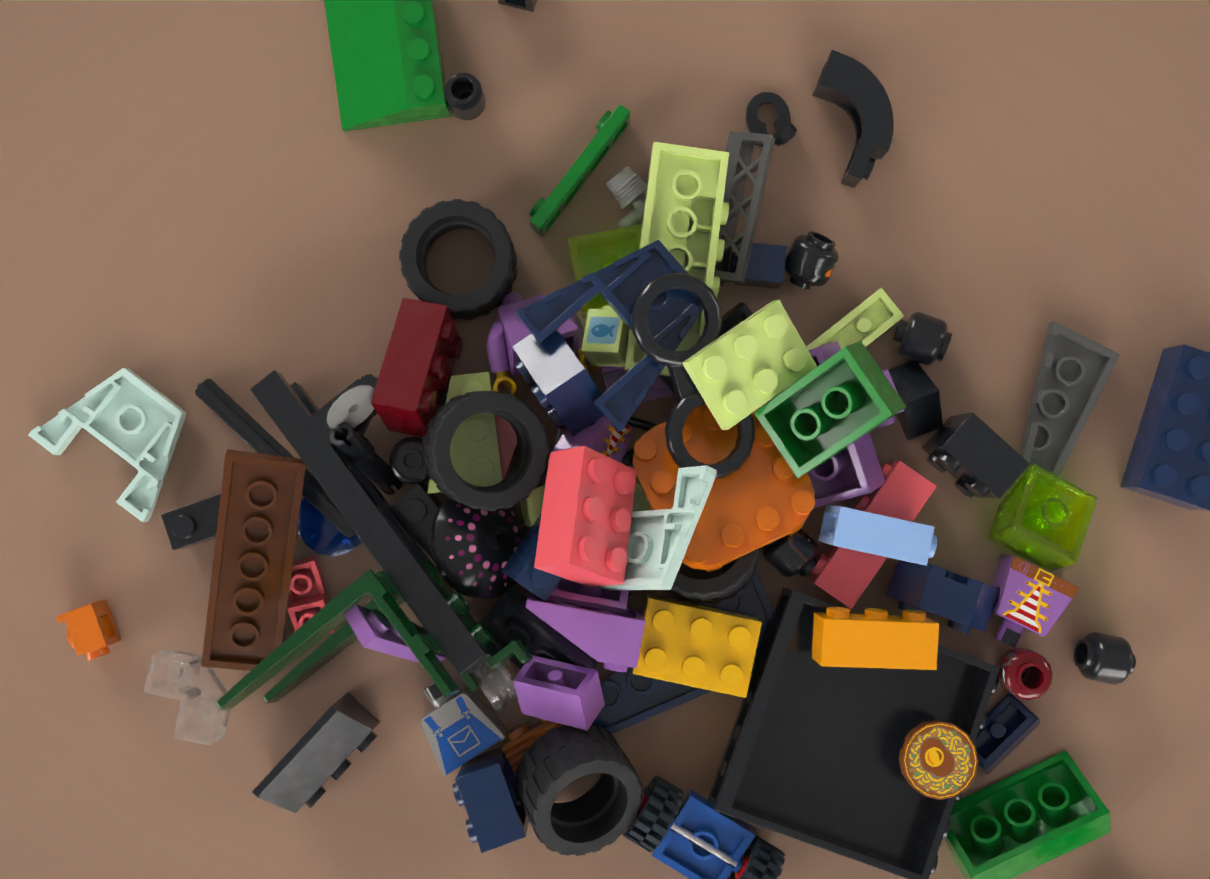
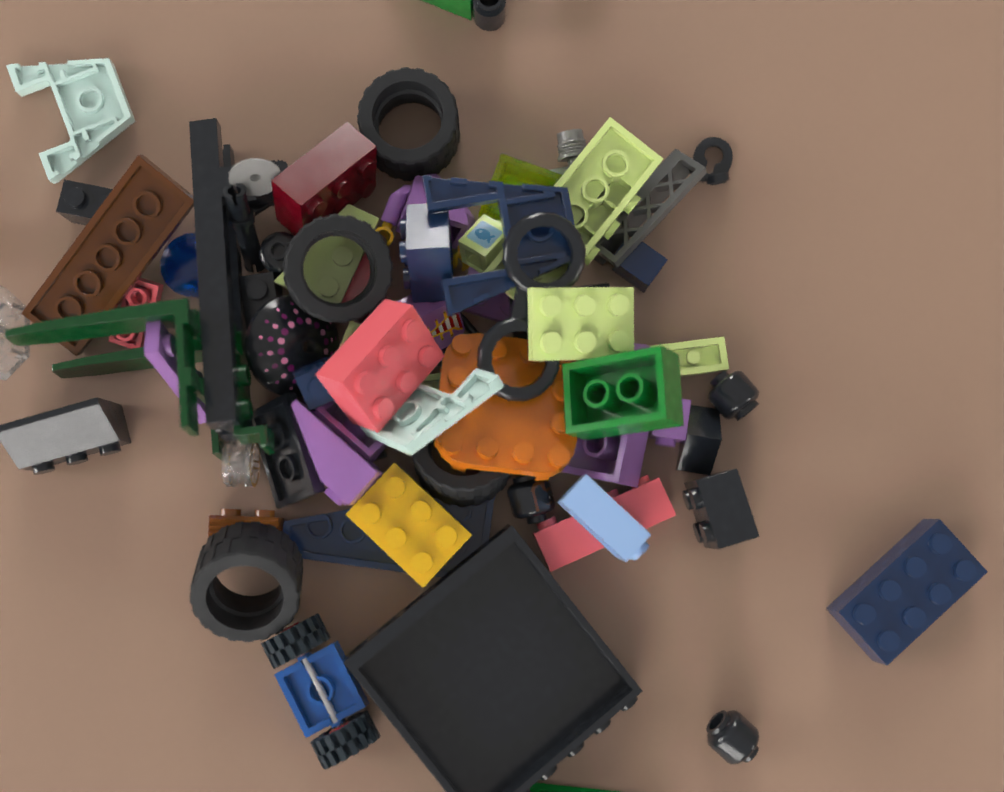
camera: 30 degrees right, 5 degrees down
(265, 443) = (176, 169): black axle -> none
(459, 727) = (187, 479): torso -> none
(491, 801) = (172, 550): dark blue brick -> none
(559, 692) = (280, 496): medium lavender brick -> none
(610, 129) = (584, 97): green plate -> none
(811, 260) = (681, 283): black head -> none
(867, 104) = (794, 184): black arch -> none
(875, 639) = (553, 602): light orange brick -> none
(938, 759) = (548, 733): tile -> none
(944, 593) = (641, 615): dark blue brick -> none
(1003, 731) = (615, 749): dark blue slope -> none
(1024, 673) = (668, 716): dark red head -> none
(1028, 599) = (697, 651): torso -> none
(1044, 519) = (748, 593): clear neon green slope -> none
(1064, 395) = (818, 509): dark grey wing -> none

